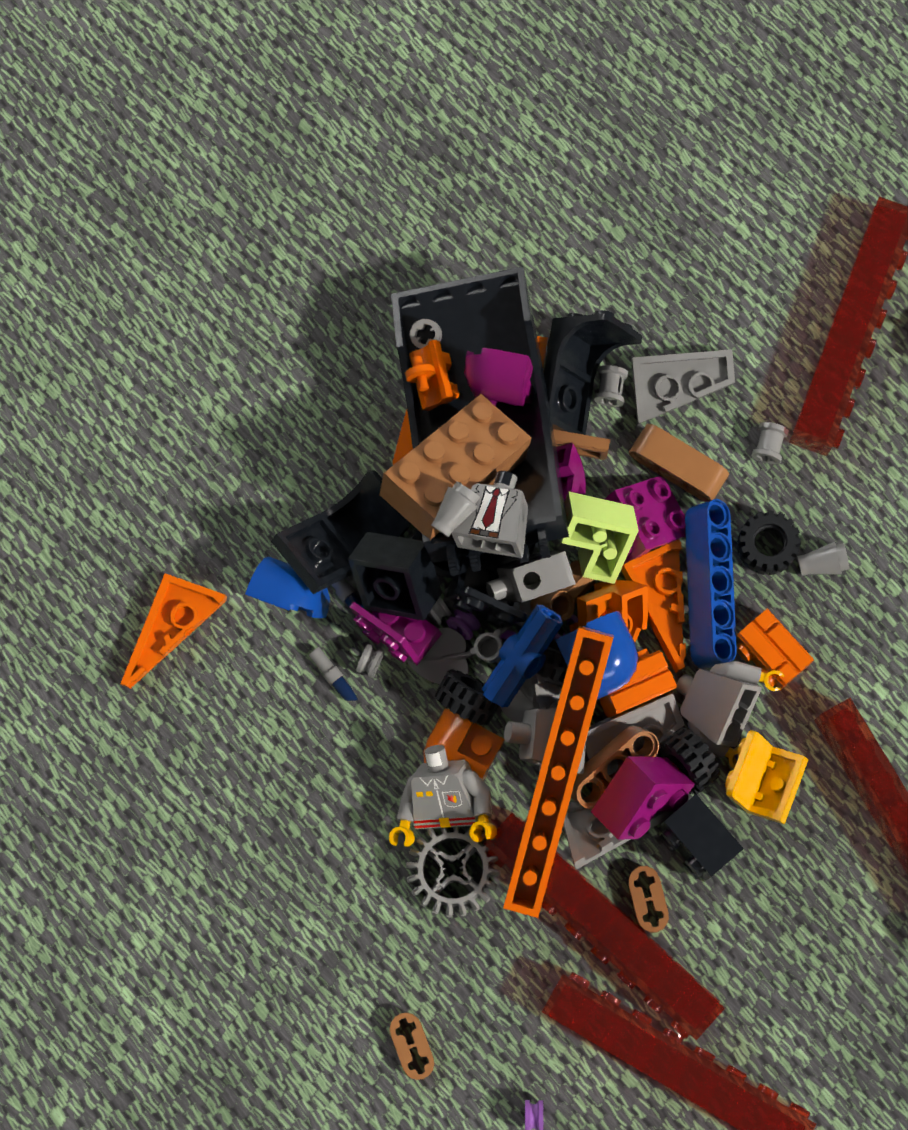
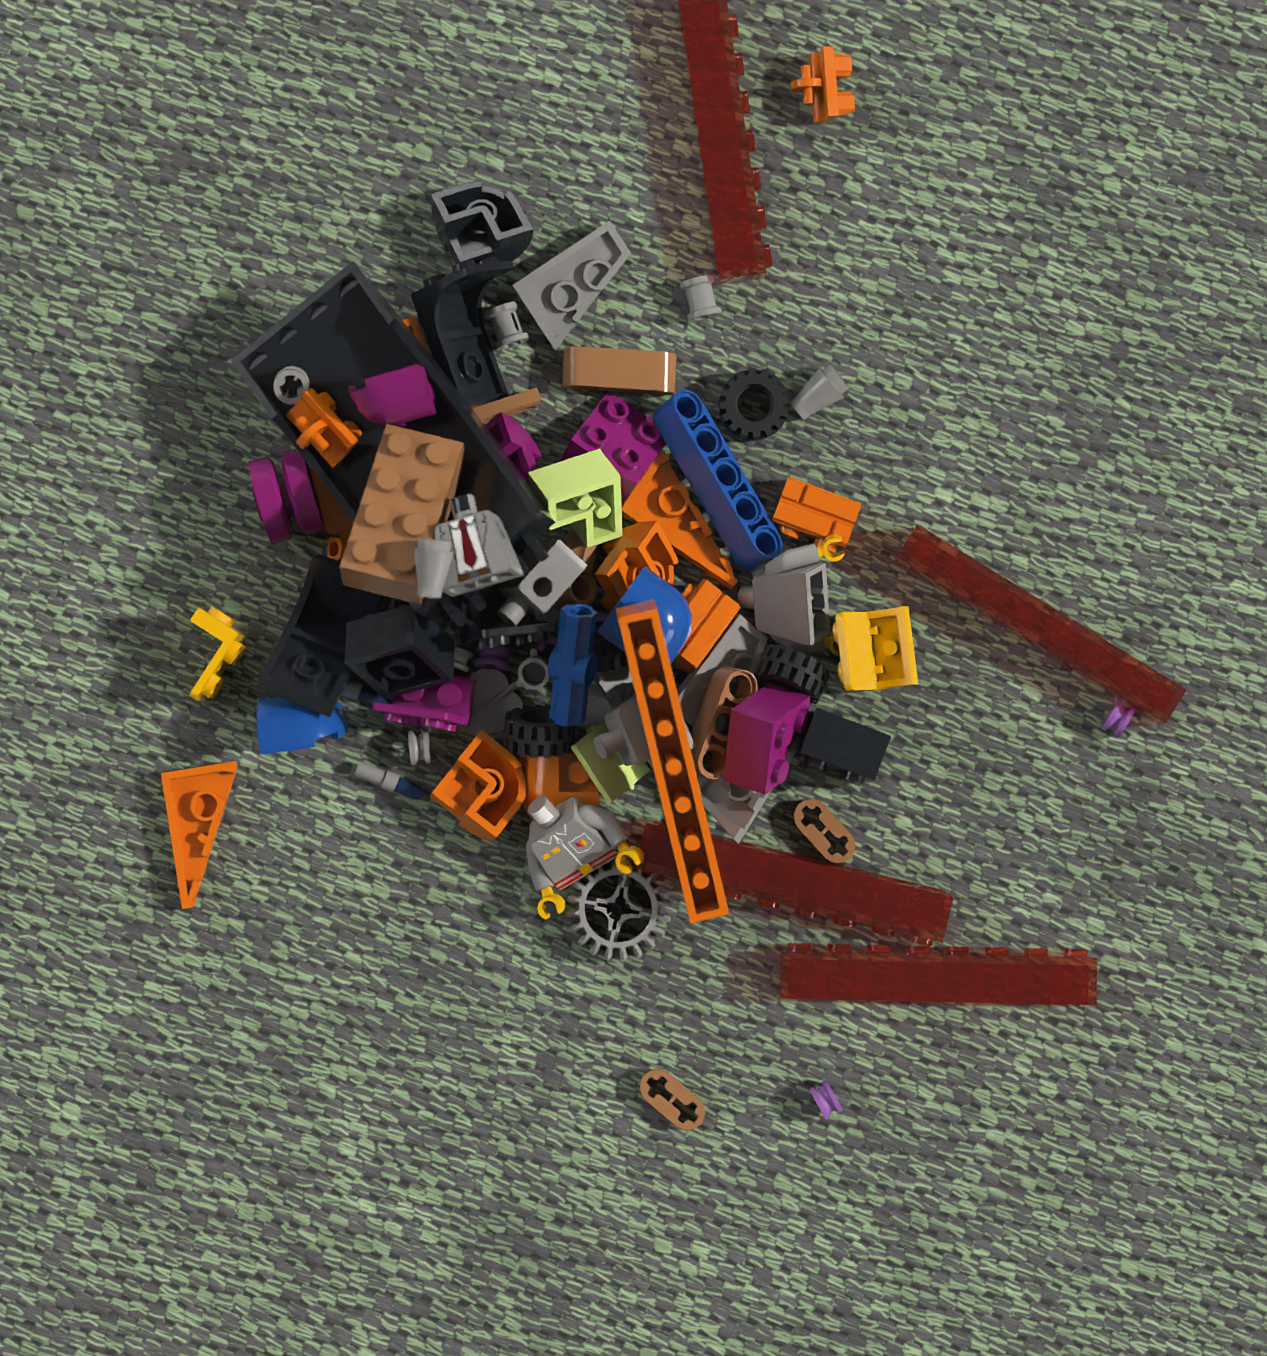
camera: 35 degrees left, 10 degrees up
(265, 509) = (229, 653): none -> yellow bracket
(371, 418) = (283, 496): none -> magenta wheel
(400, 716) = (483, 788): none -> orange brick
(504, 756) = (608, 774): none -> yellowish green piece
(634, 299) = (480, 223): none -> black brick

